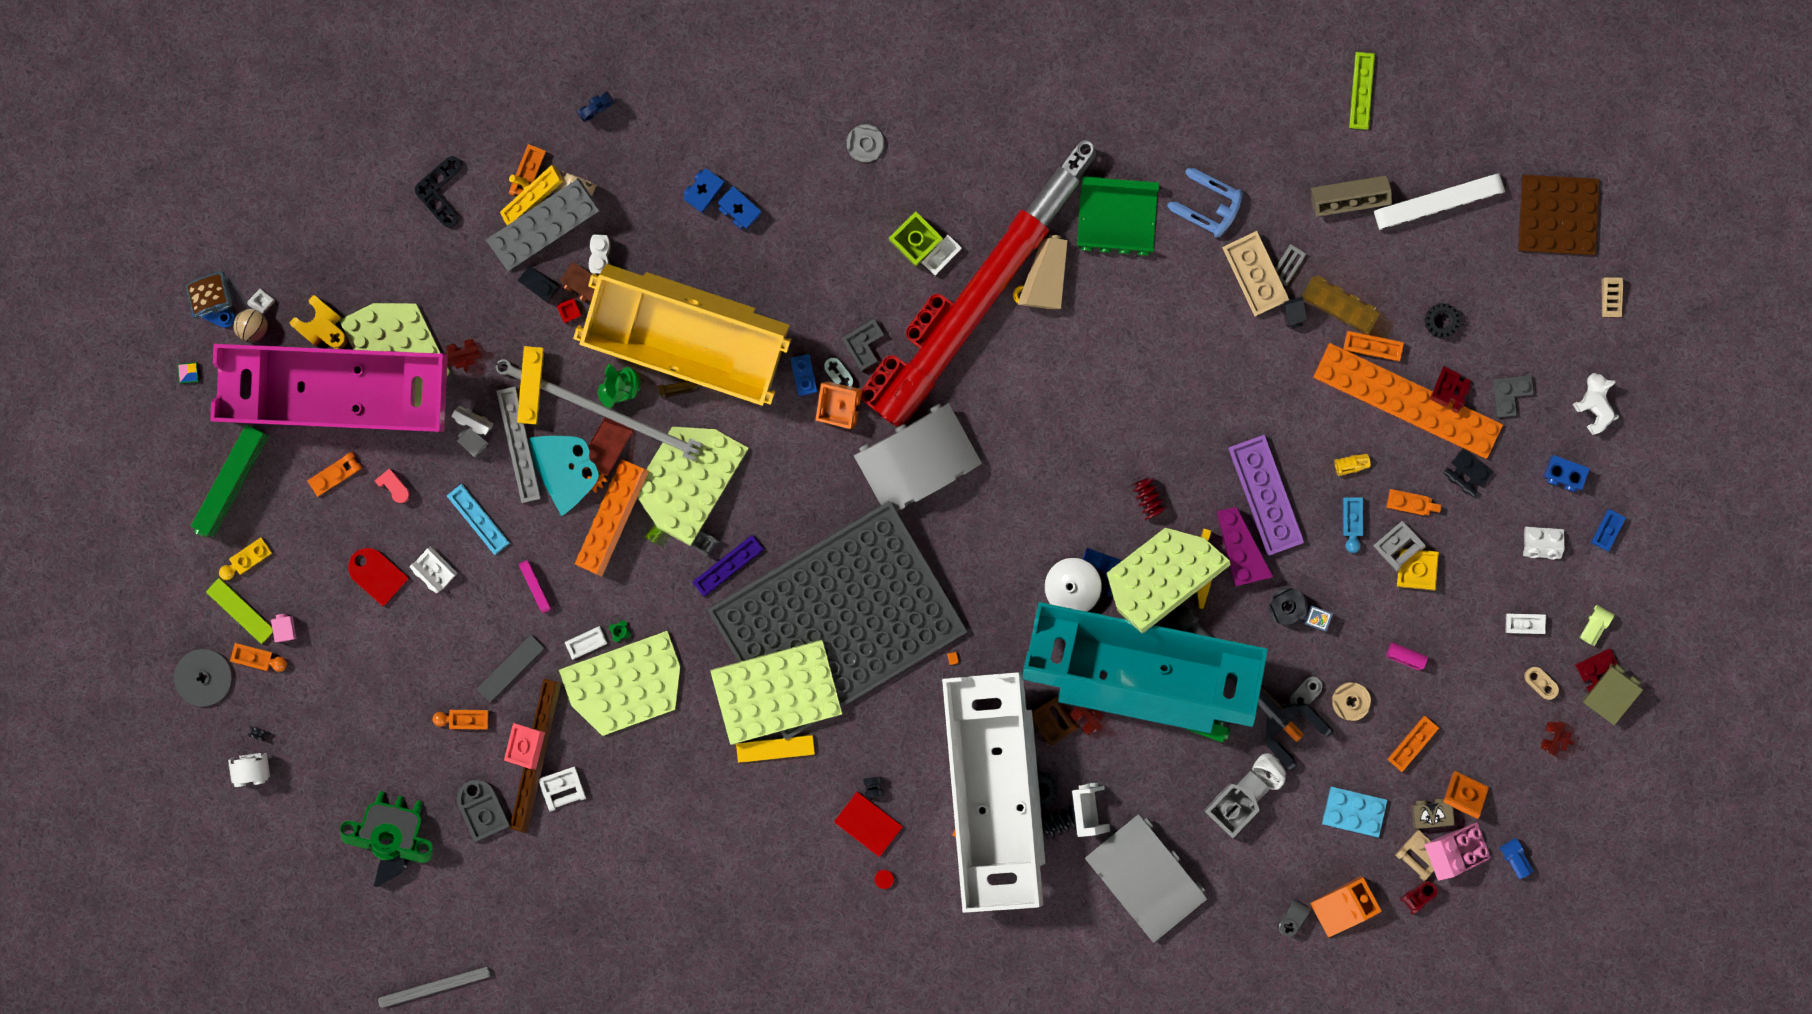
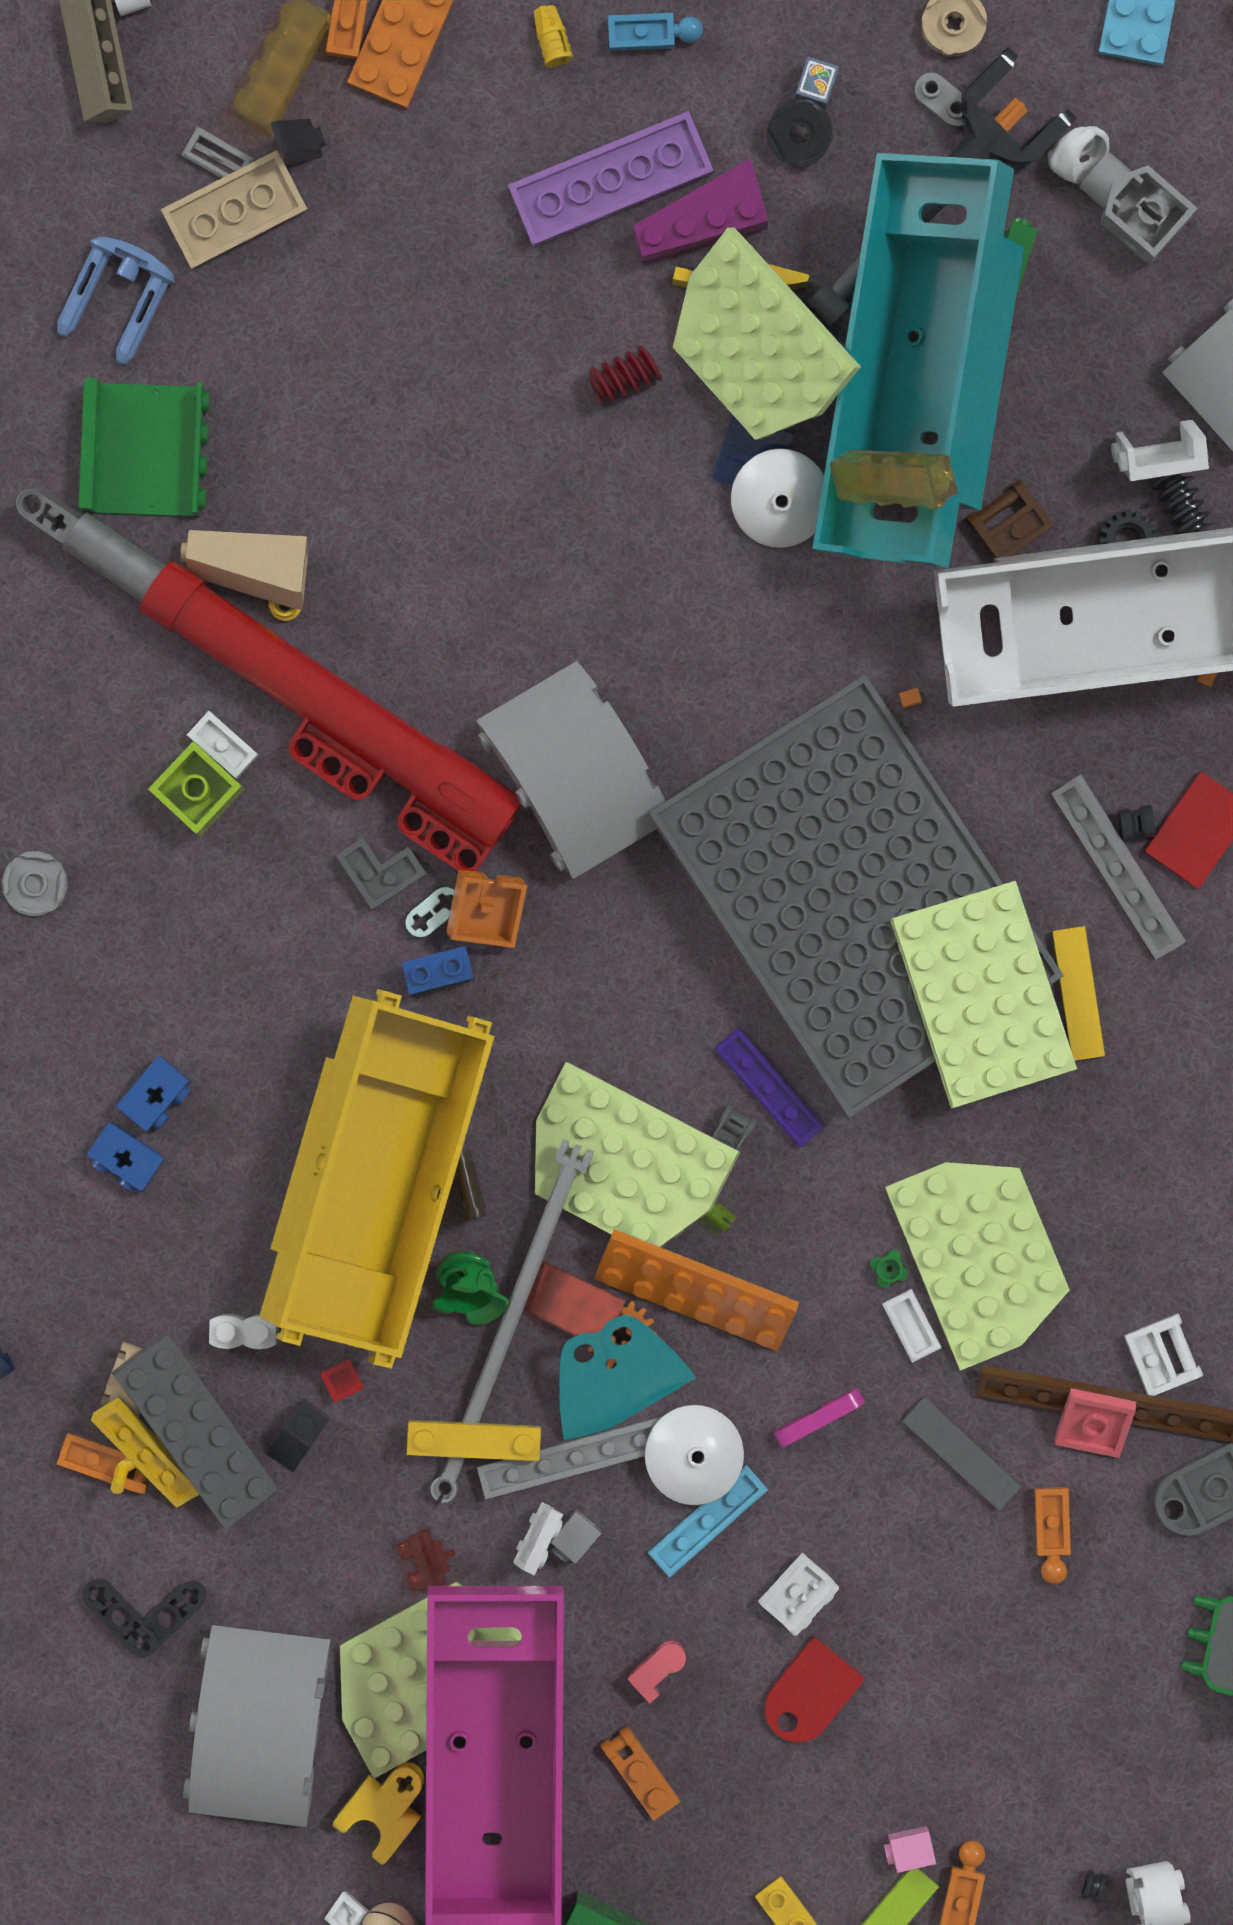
camera: 90 degrees left, 0 degrees up
(372, 254) = (257, 1725): none -> light grey panel
(530, 510) = (671, 1450): none -> white dish
(578, 280) = (290, 1363): copper brick -> none
(848, 775) = (1118, 867): none -> light grey plate
(1074, 649) = (894, 478): none -> clear yellow brick
(1092, 724) = (1014, 457): clear red hips -> none

